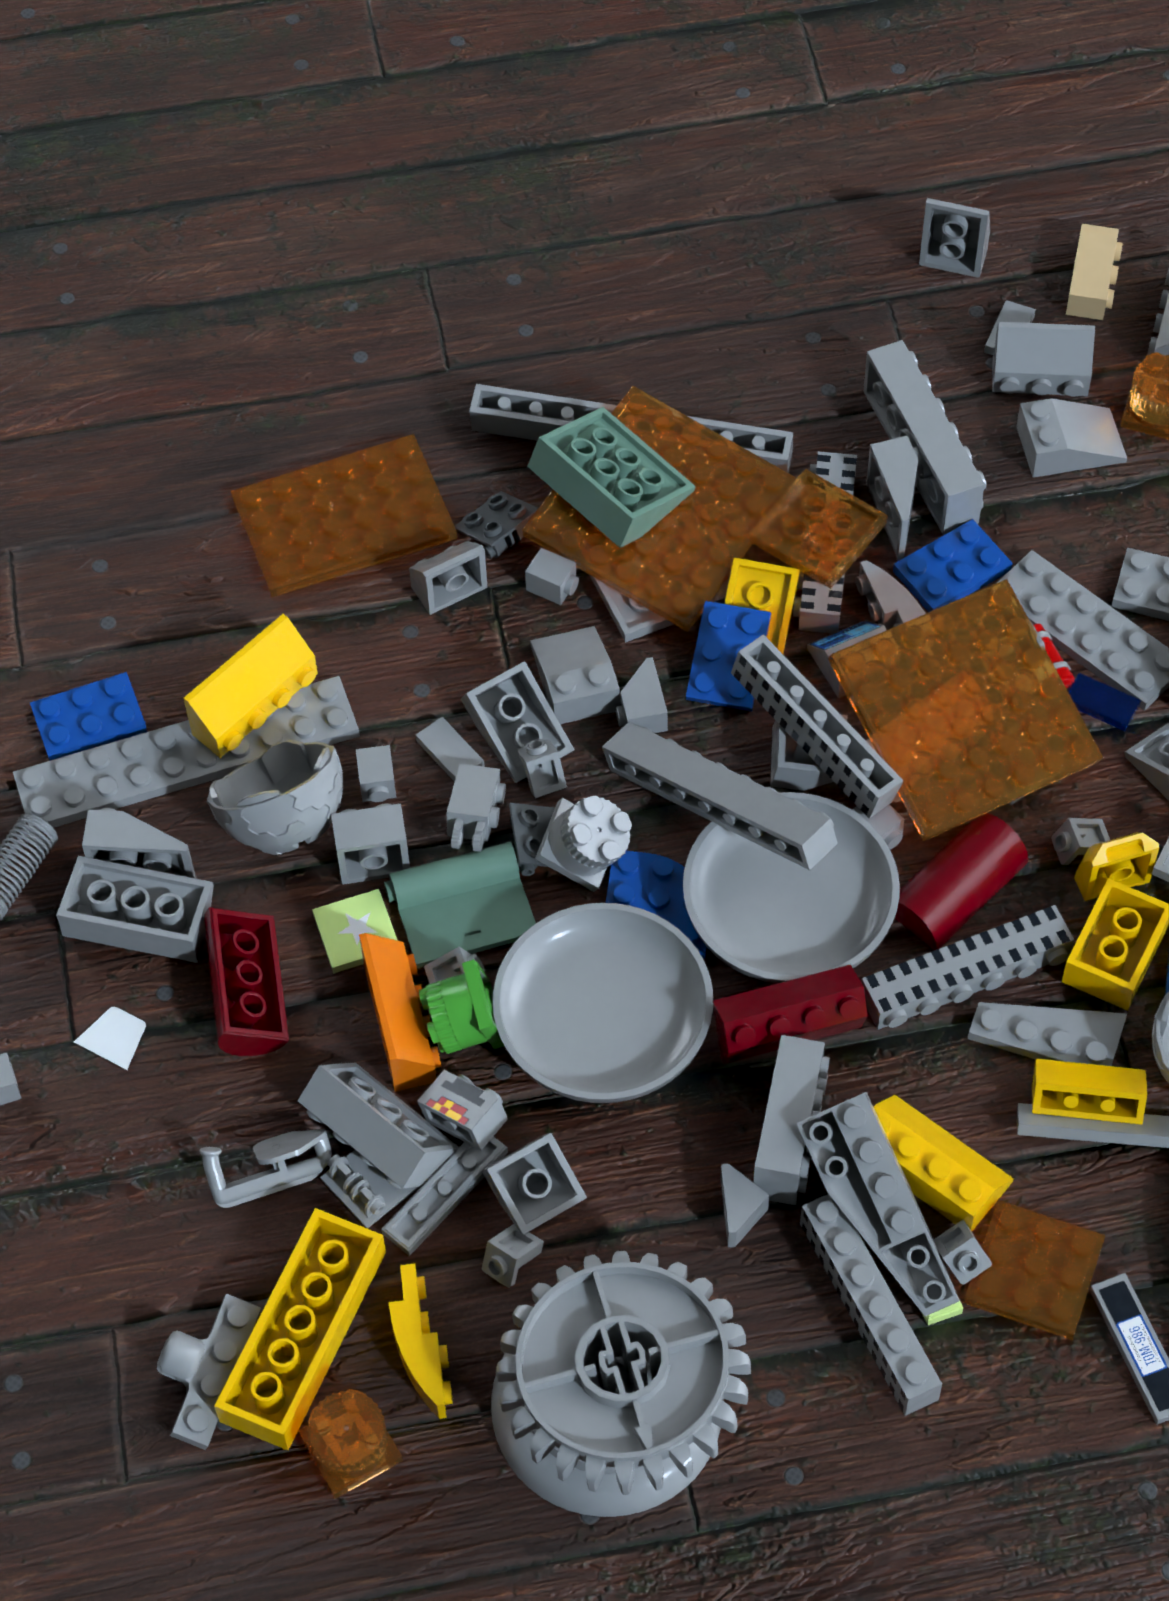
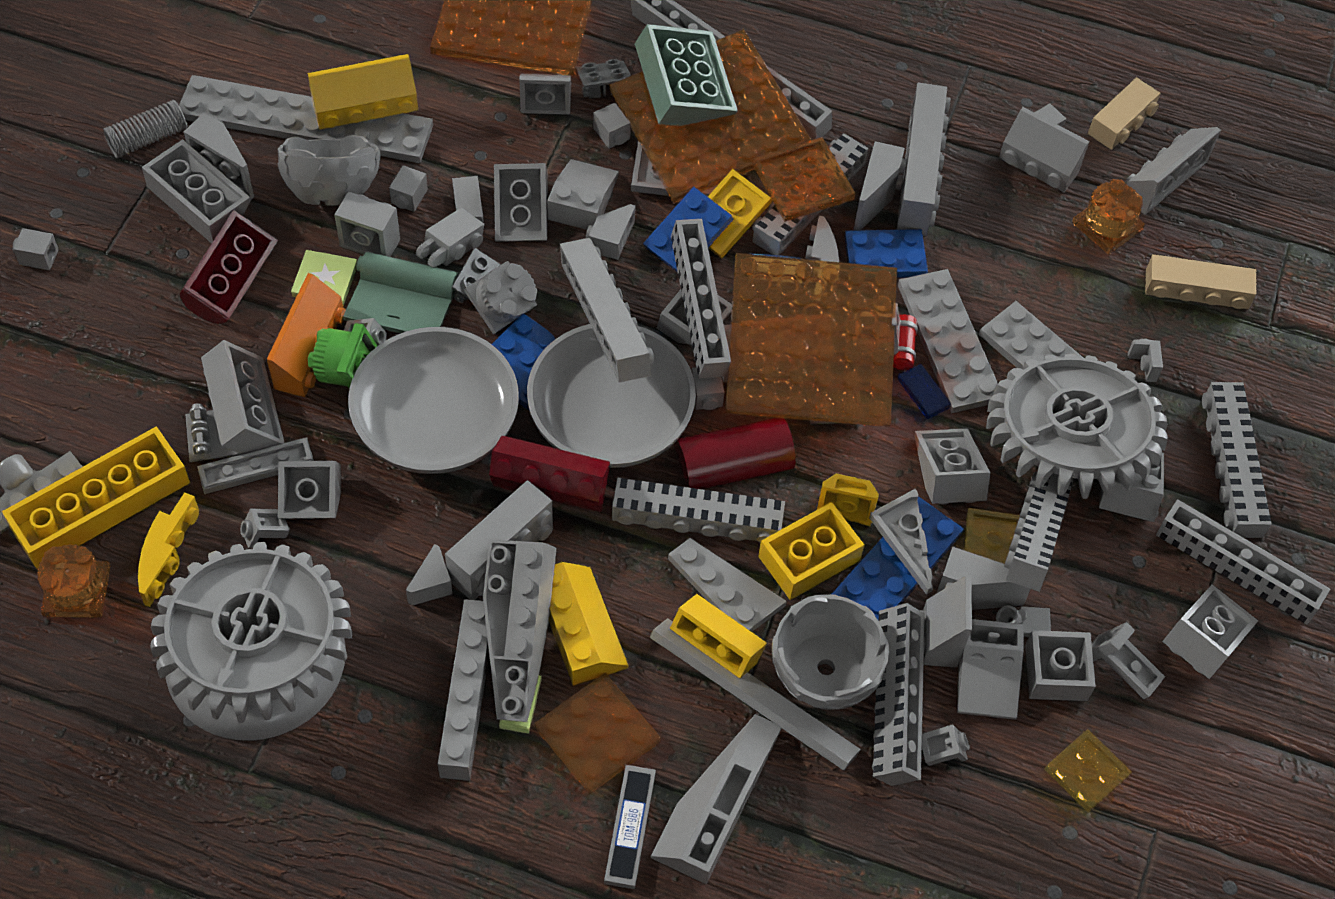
camera: 25 degrees right, 0 degrees up
(88, 716) = (263, 66): blue plate -> none
(114, 1036) = (131, 263): white sticker -> none
(267, 1152) = (155, 400): light grey piece -> none
(463, 1109) = (301, 419): brick -> none
(542, 767) = (514, 238): light grey bracket -> none
(954, 237) = (1038, 44): light grey slope -> none
(962, 1252) = (550, 691): light grey bracket -> none
(1068, 436) = (1029, 210): light grey slope -> none
(1077, 836) = (839, 464): light grey bracket -> none

